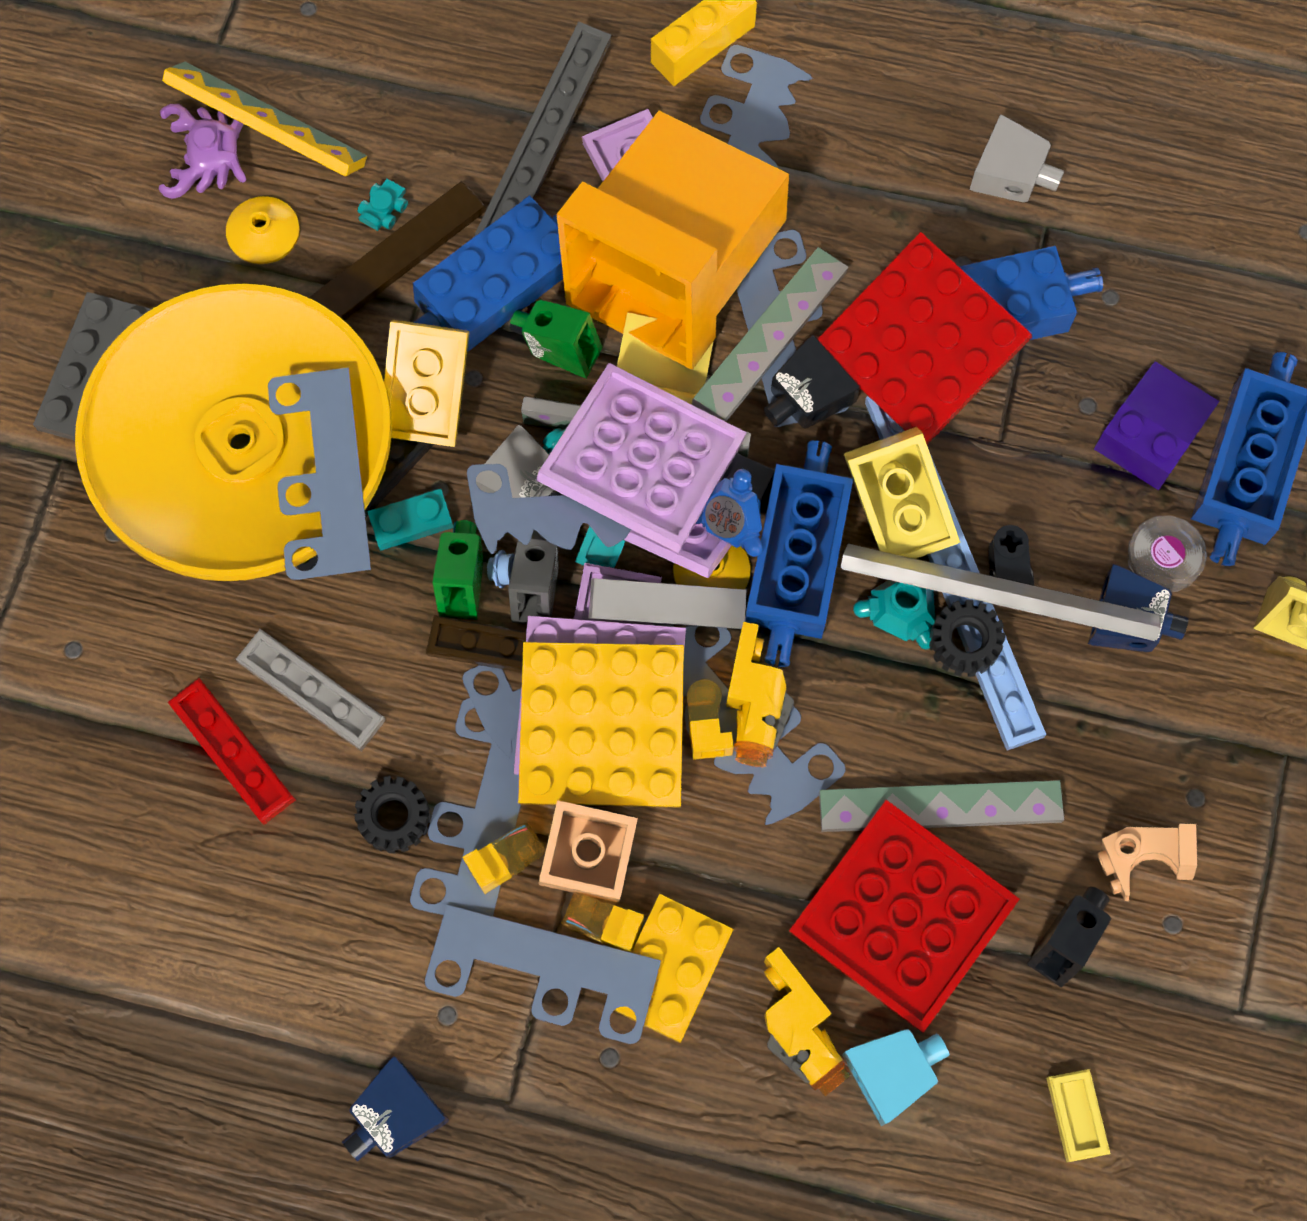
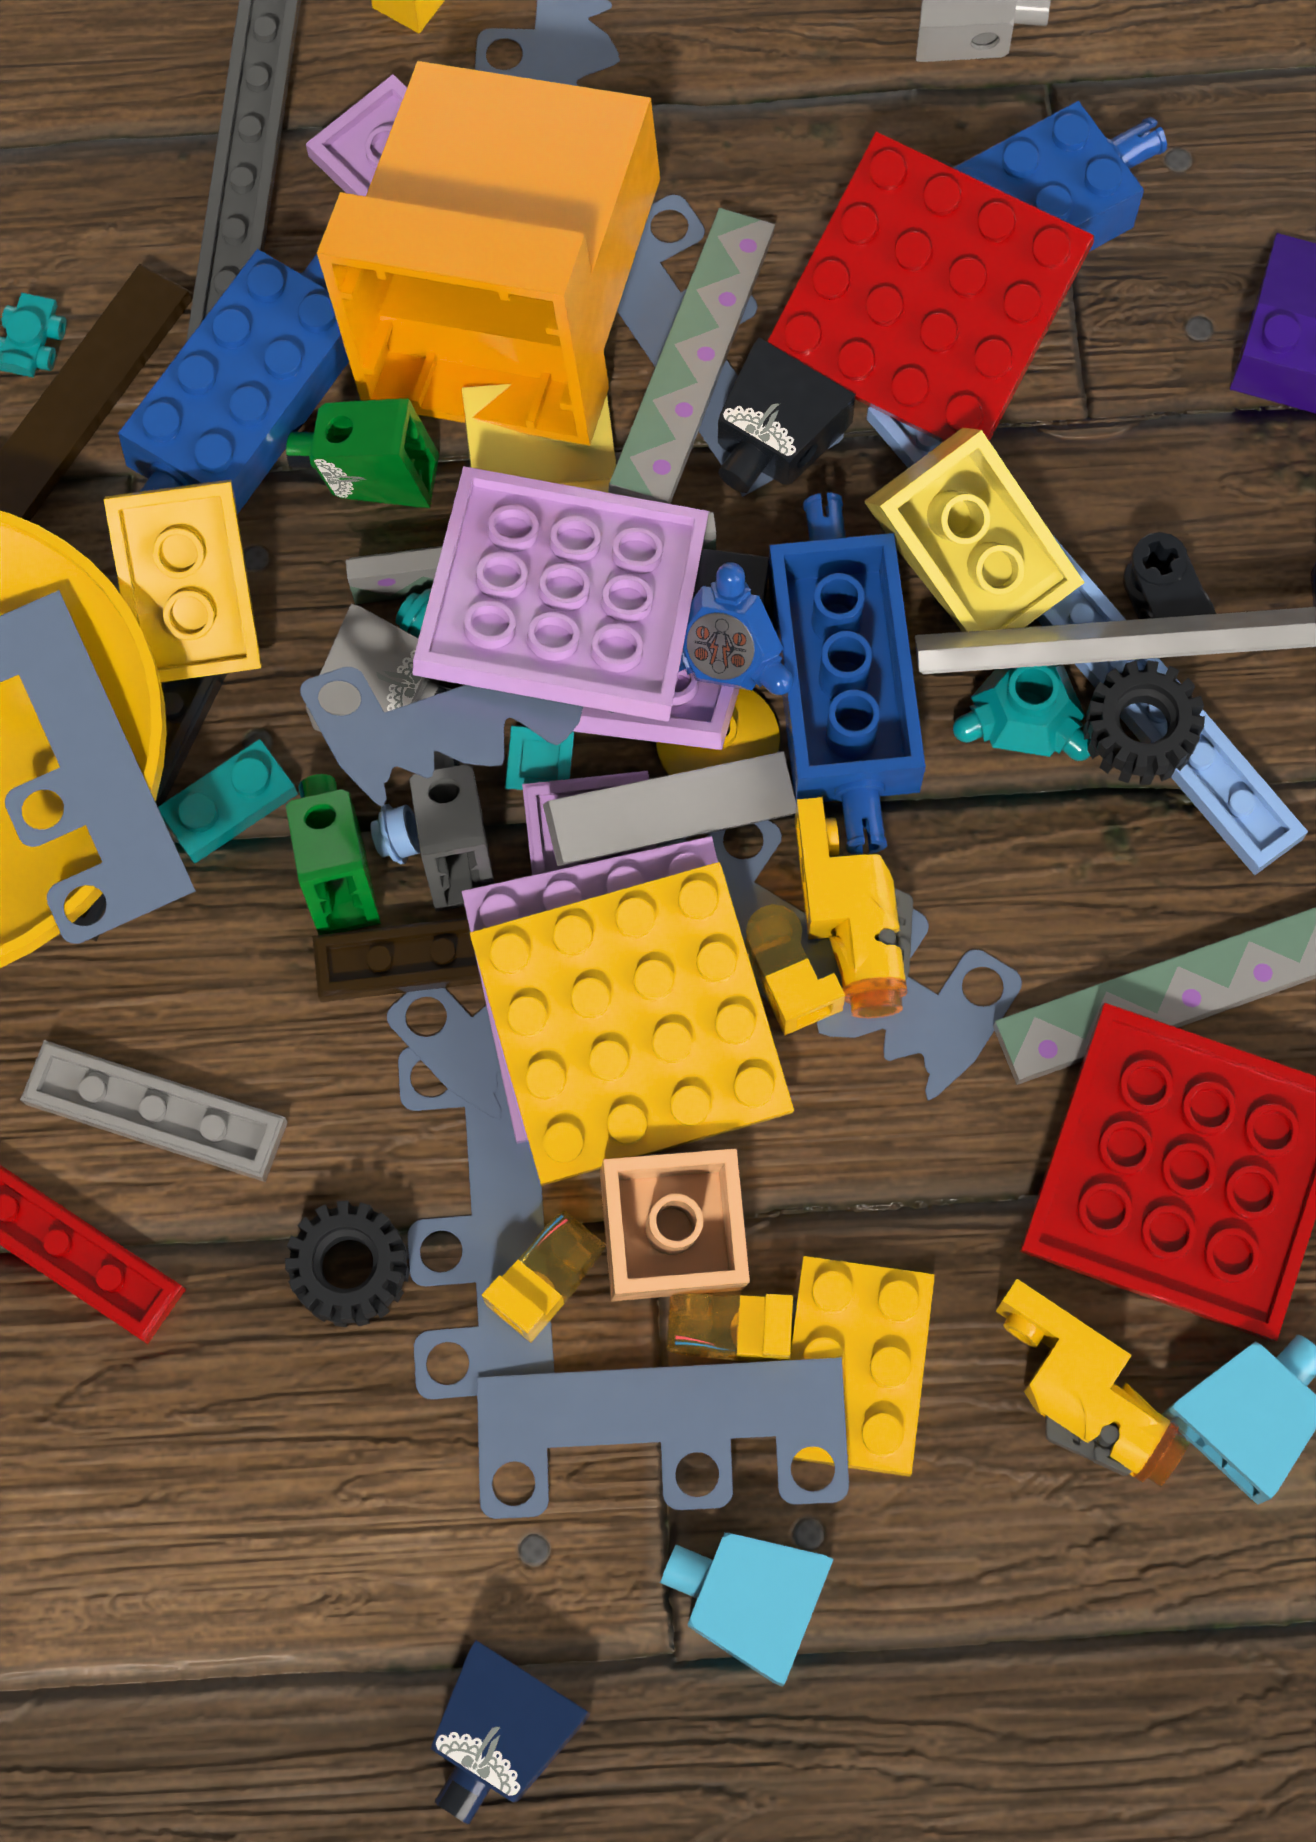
camera: 15 degrees left, 0 degrees up
(562, 1084) = (751, 1598): none -> medium azure torso

